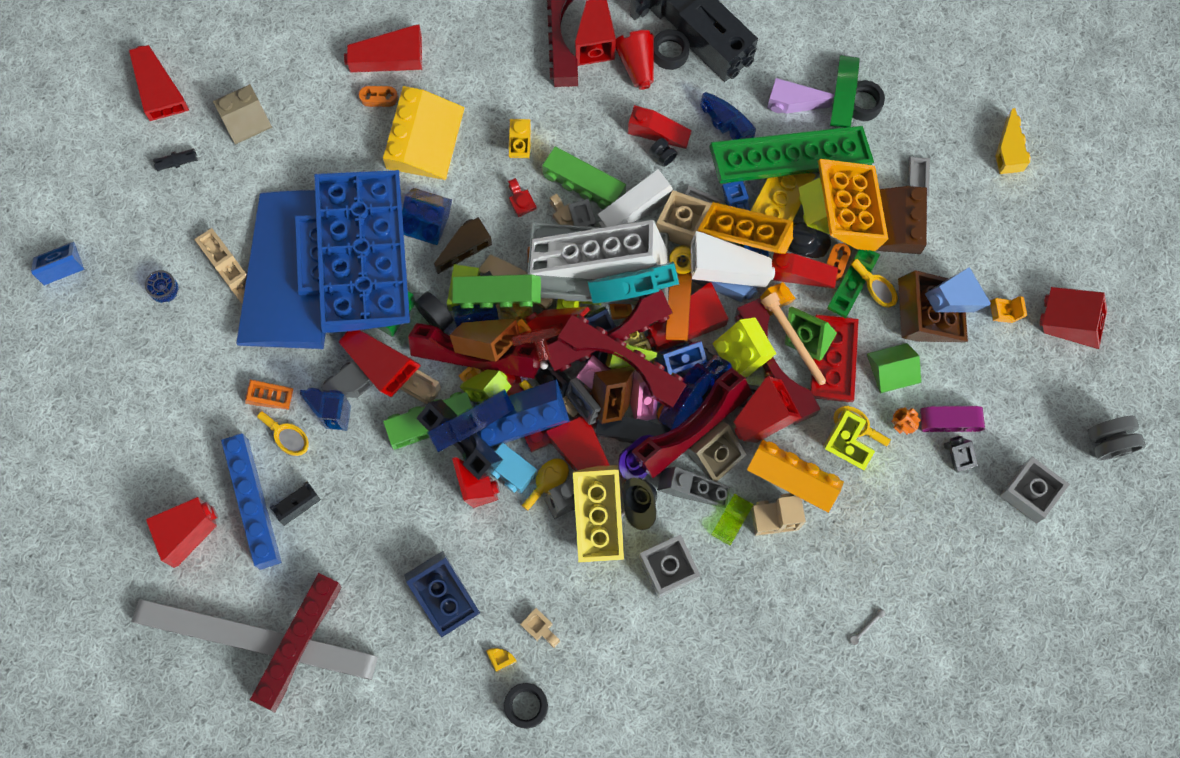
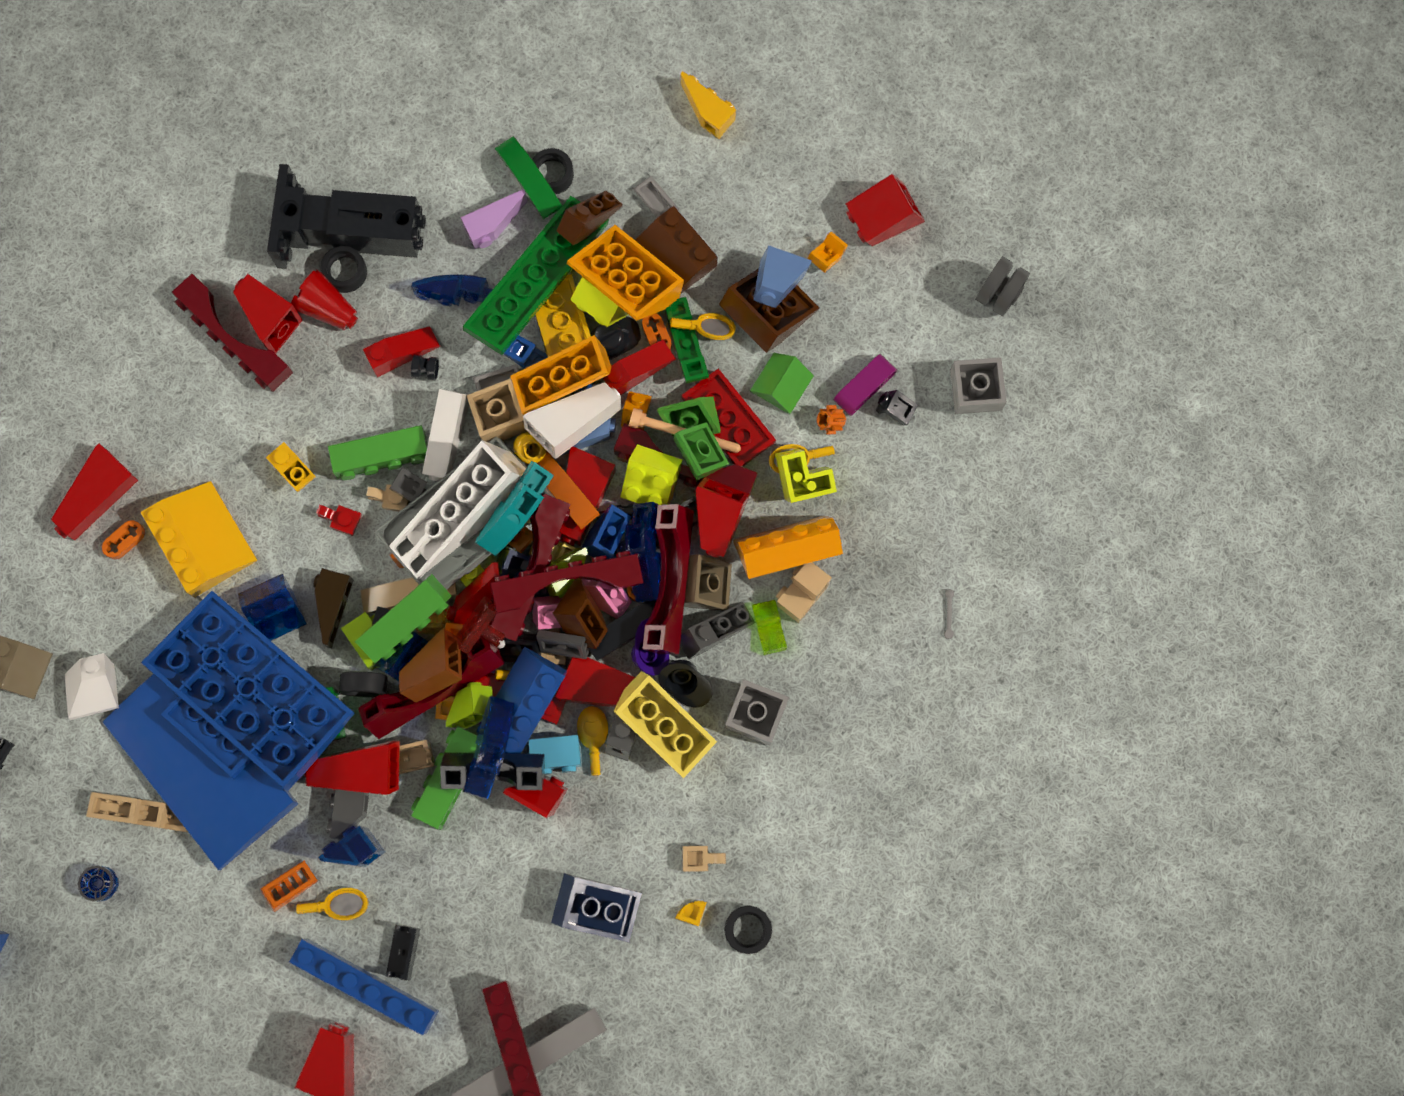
camera: 45 degrees left, 5 degrees up
(274, 165) = (91, 687): none -> white slope
(794, 359) = (700, 450): none -> bright green slope
(860, 146) = (587, 216): none -> reddish brown slope

